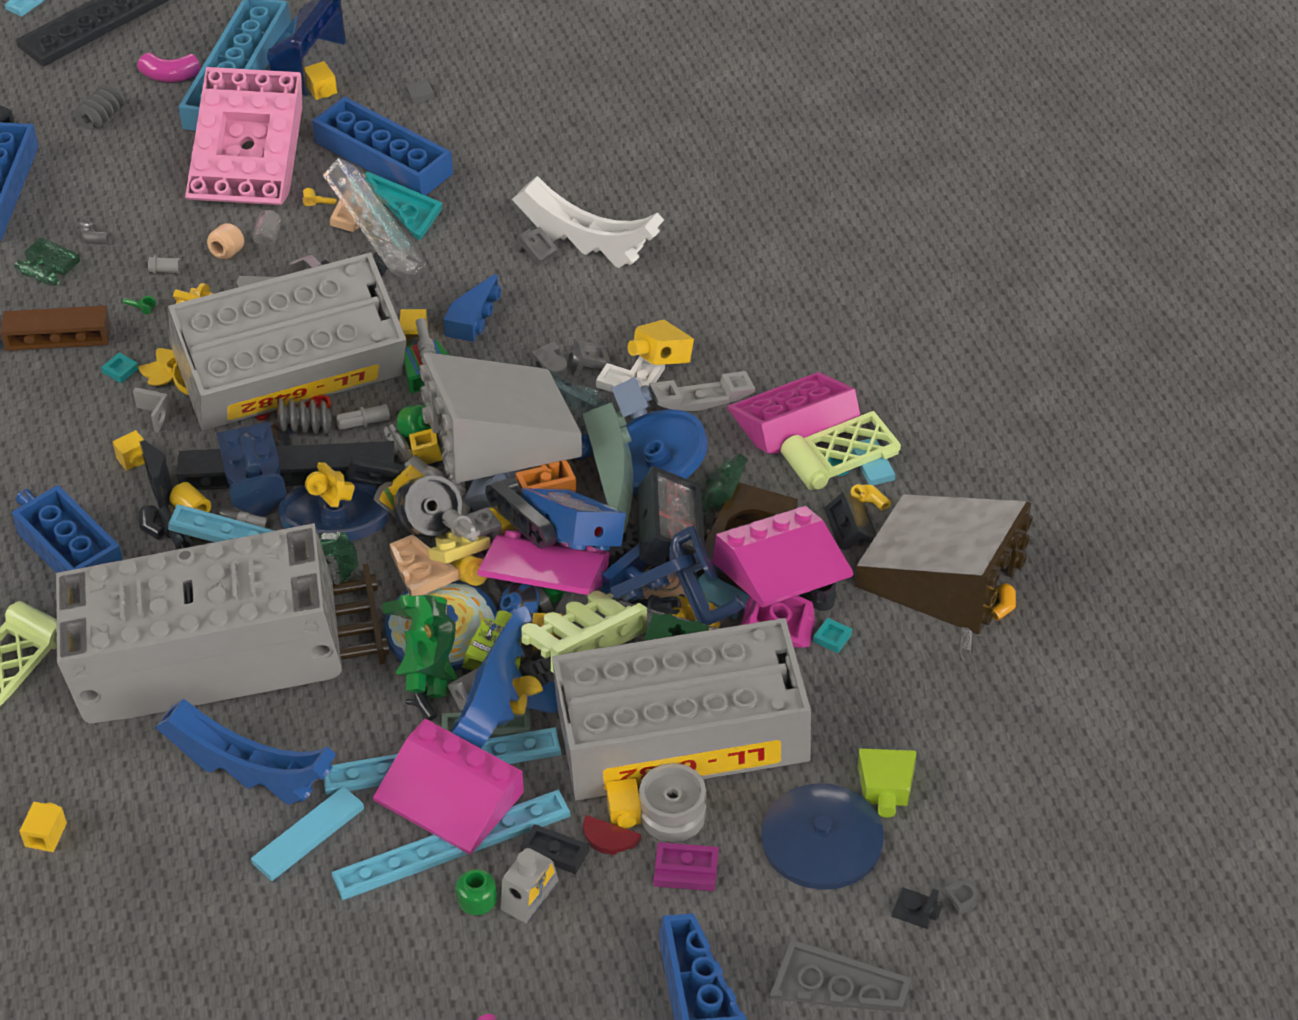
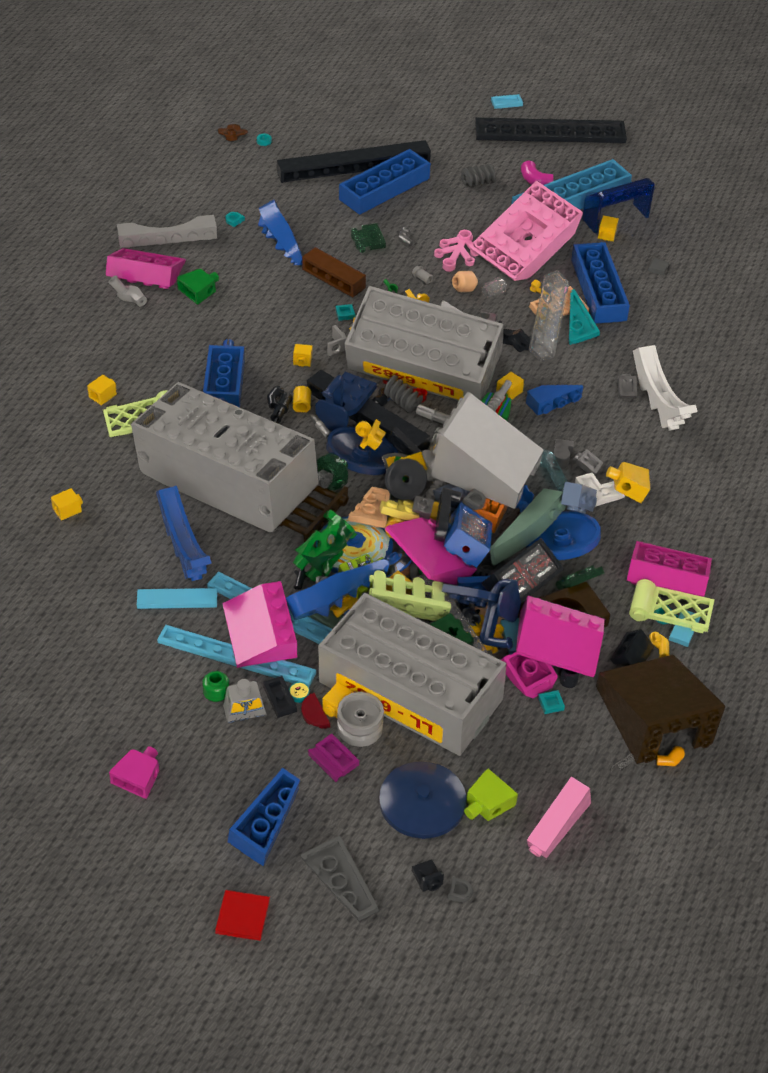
camera: 40 degrees right, 0 degrees up
(157, 473) = (295, 373): black slope -> none
(164, 191) = (464, 237): none -> bright pink plant
(210, 526) = (299, 421): medium azure tile -> none
(460, 525) = (407, 498): light grey axle -> none
(533, 475) = (474, 500): none -> dark grey tile
(568, 825) = (299, 691): none -> light yellow tile
(702, 396) = (625, 525): light grey slope -> none
(979, 742) = (559, 818): none -> bright pink slope

